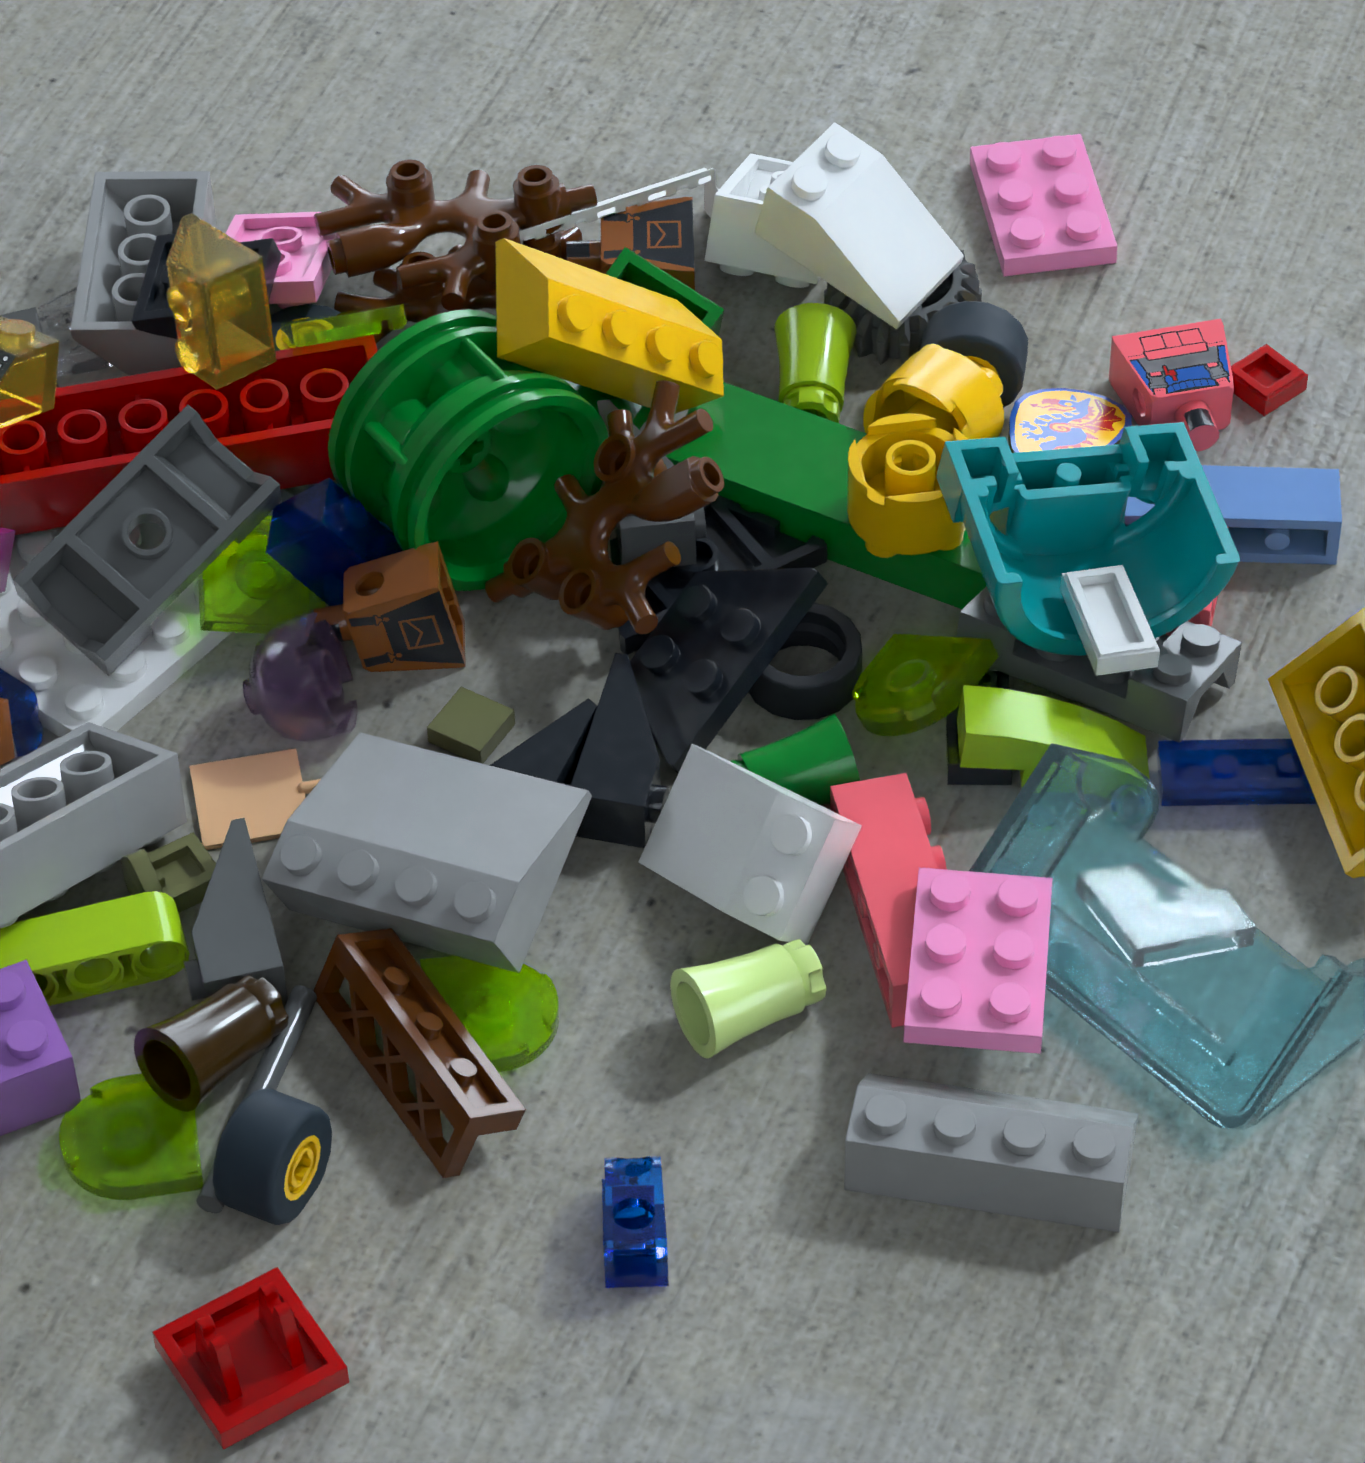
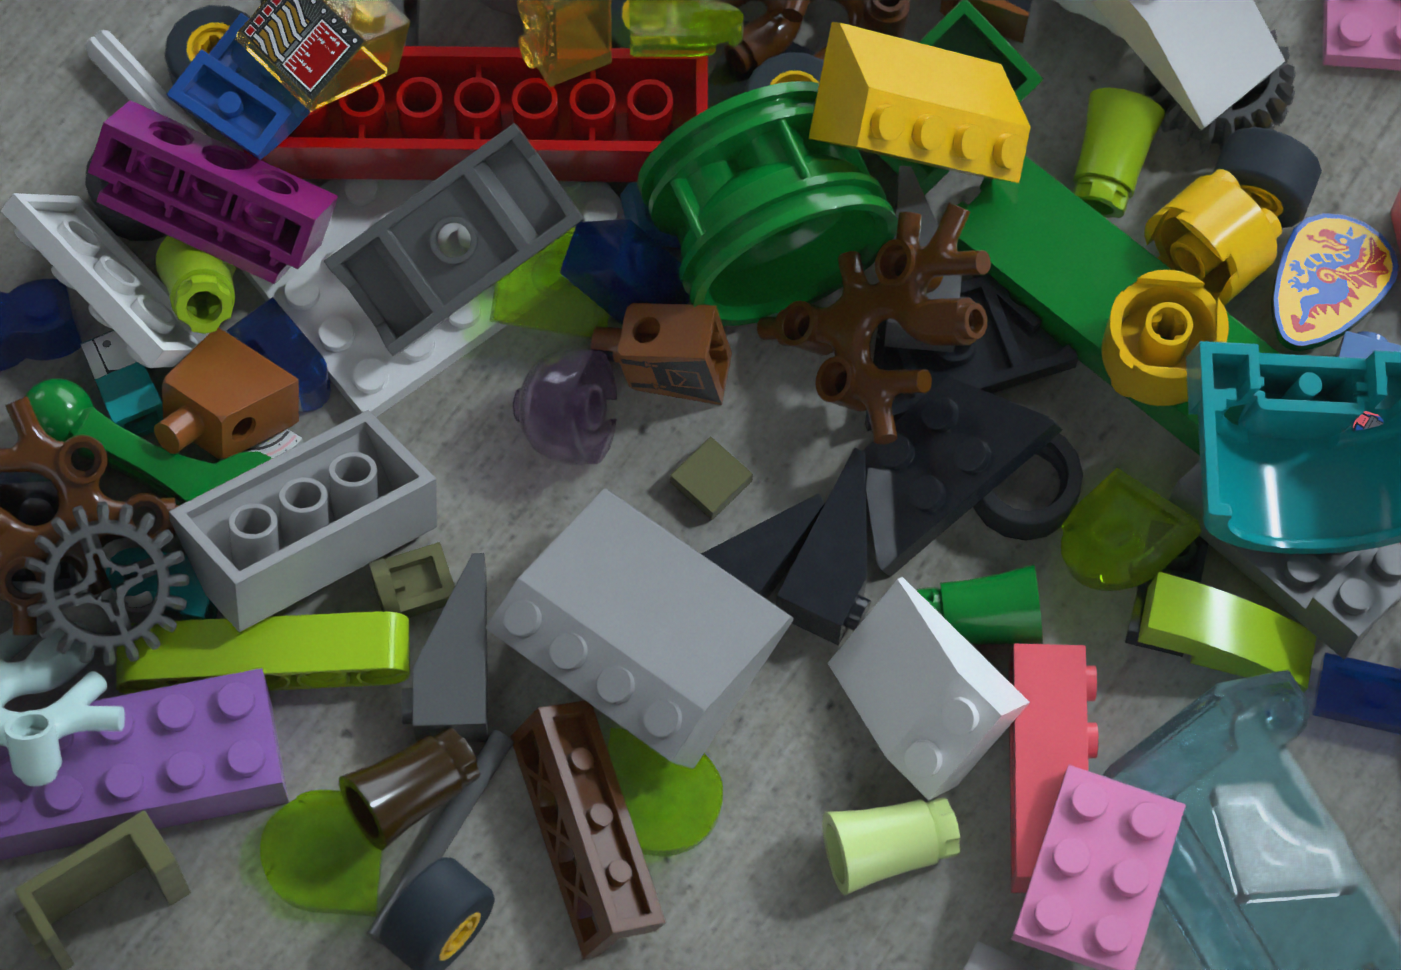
camera: 10 degrees right, 20 degrees up
(255, 787) = (505, 508): light nougat piece -> none
(1109, 620) = (1310, 534): white tile -> none

